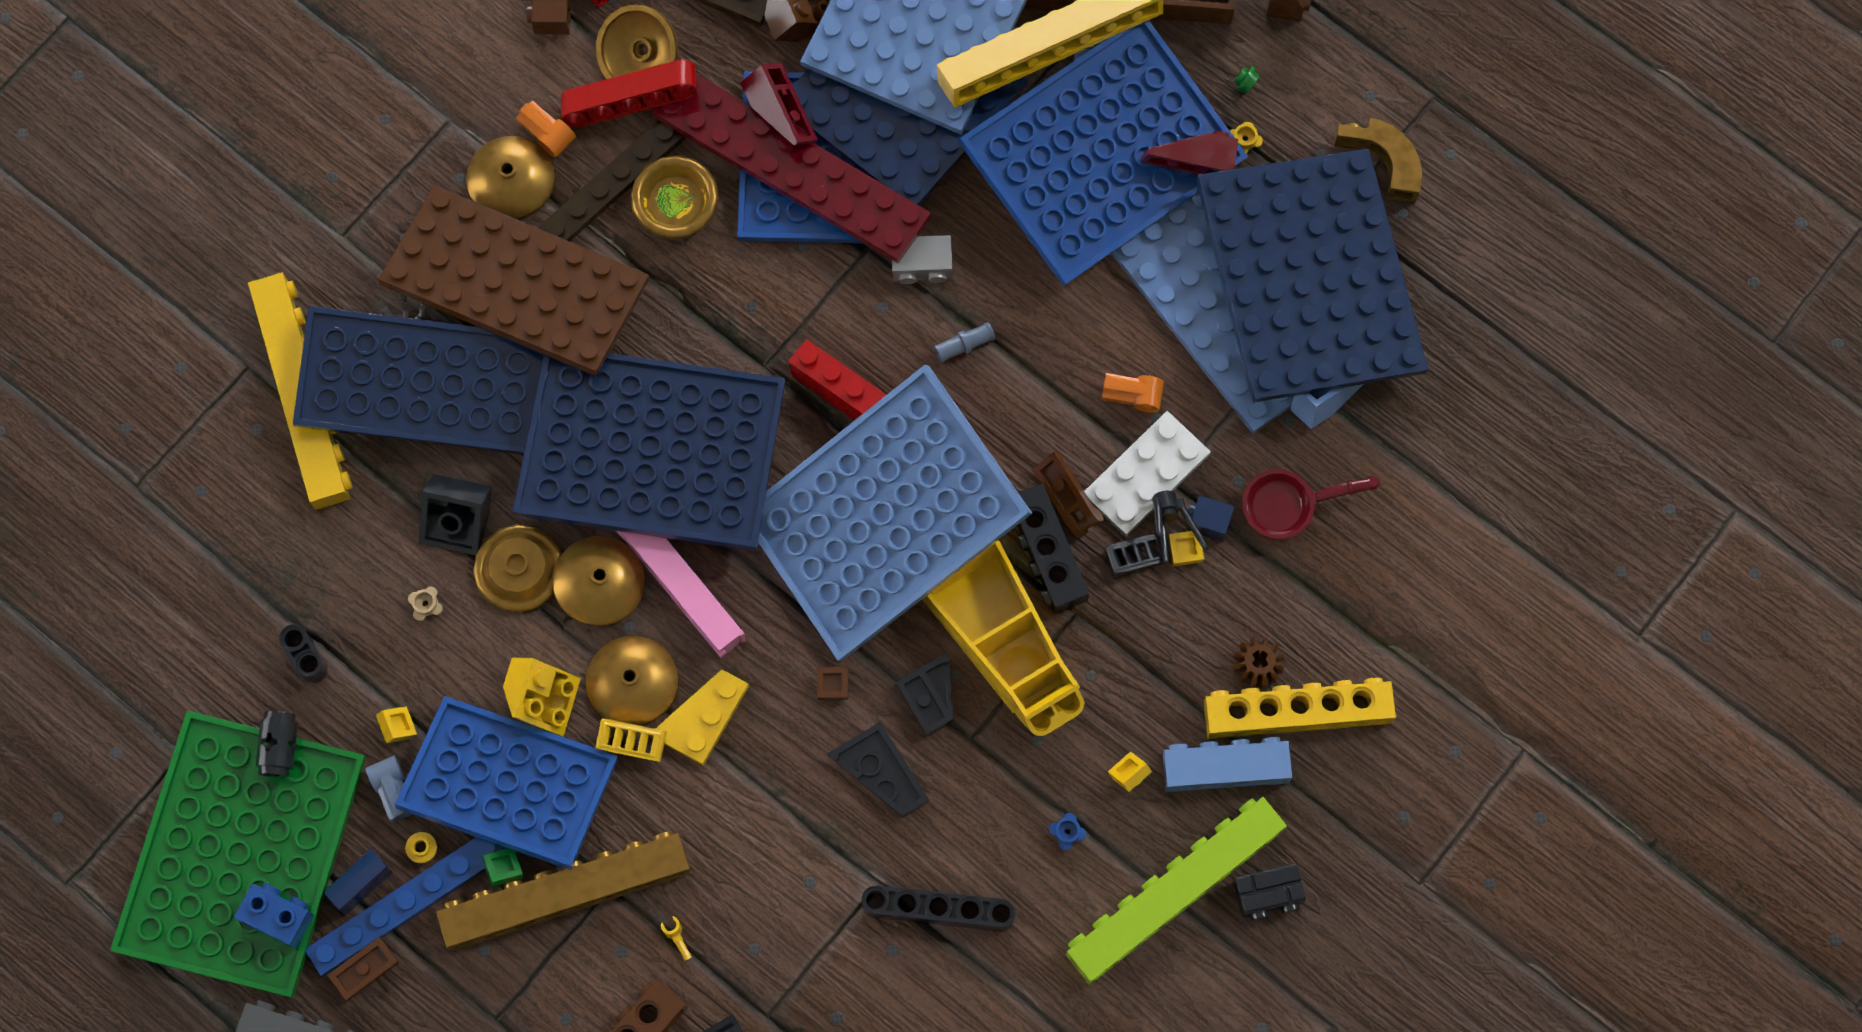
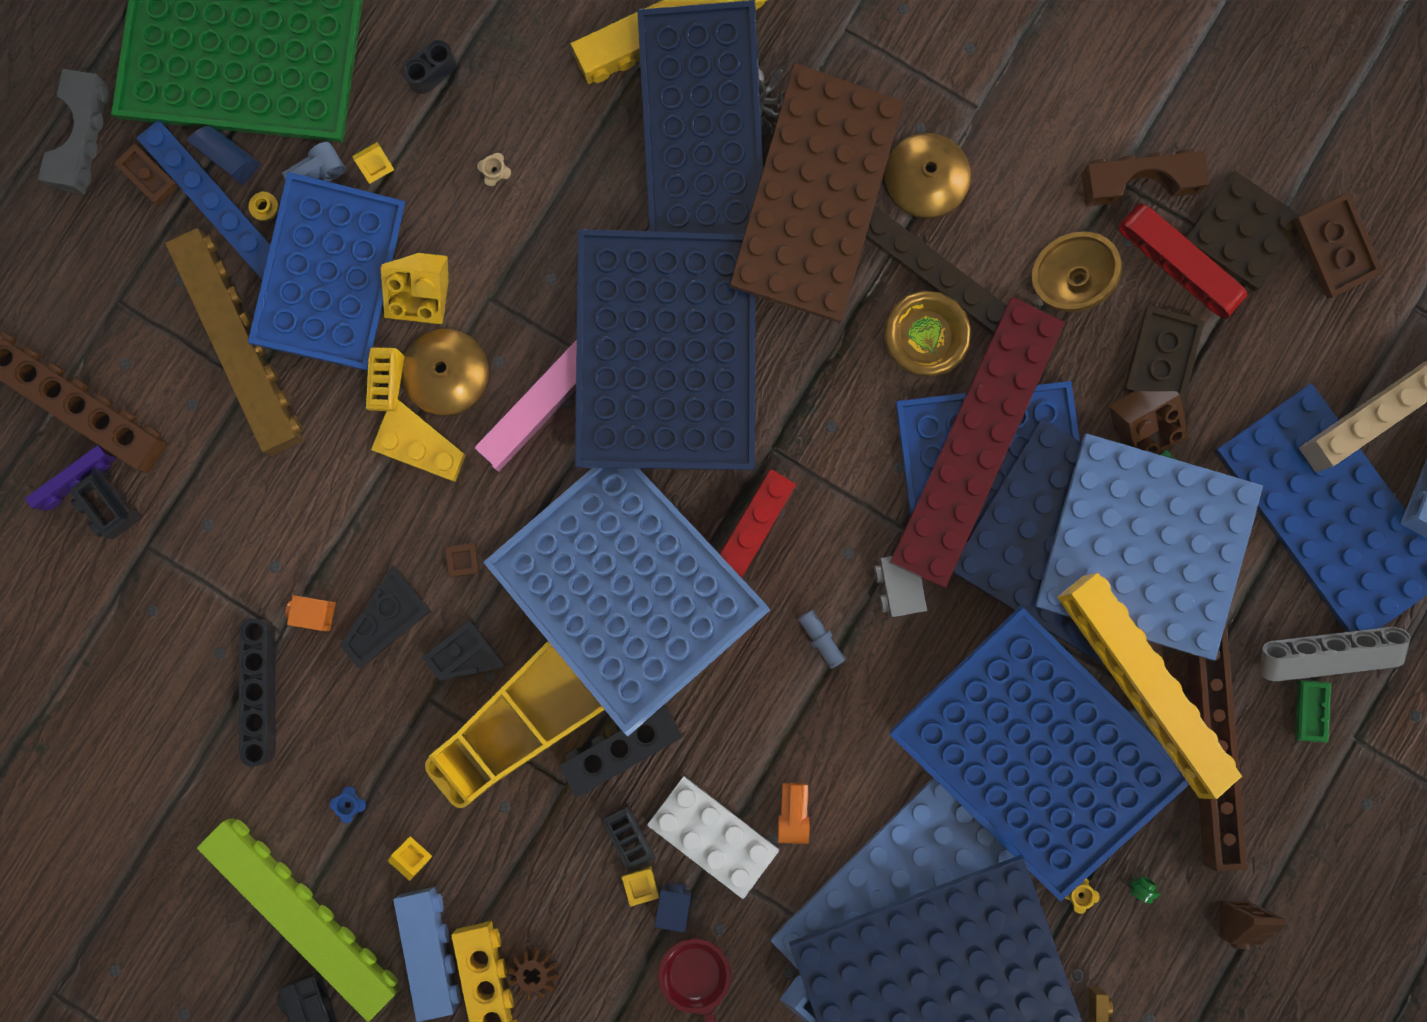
camera: 80 degrees right, 10 degrees up
(274, 915) = (176, 83): blue brick -> none
(277, 729) = (319, 56): black piece -> none
(454, 514) = (582, 179): black slope -> none
(502, 867) = (246, 280): green tile -> none
(517, 568) = (538, 249): pearl gold piece -> none
(551, 134) = (978, 202): orange piece -> none
(593, 600) = (556, 328): pearl gold dish -> none
(628, 93) = (1027, 271): red beam -> none
(677, 938) = (208, 451): yellow hand -> none
(777, 102) = (1036, 419): dark red slope -> none
(864, 844) = (310, 613): none -> orange brick
(1067, 494) = (678, 762): reddish brown plate -> none
(1166, 510) = (674, 863): black plant -> none
(1196, 154) = (1050, 862): dark red slope -> none

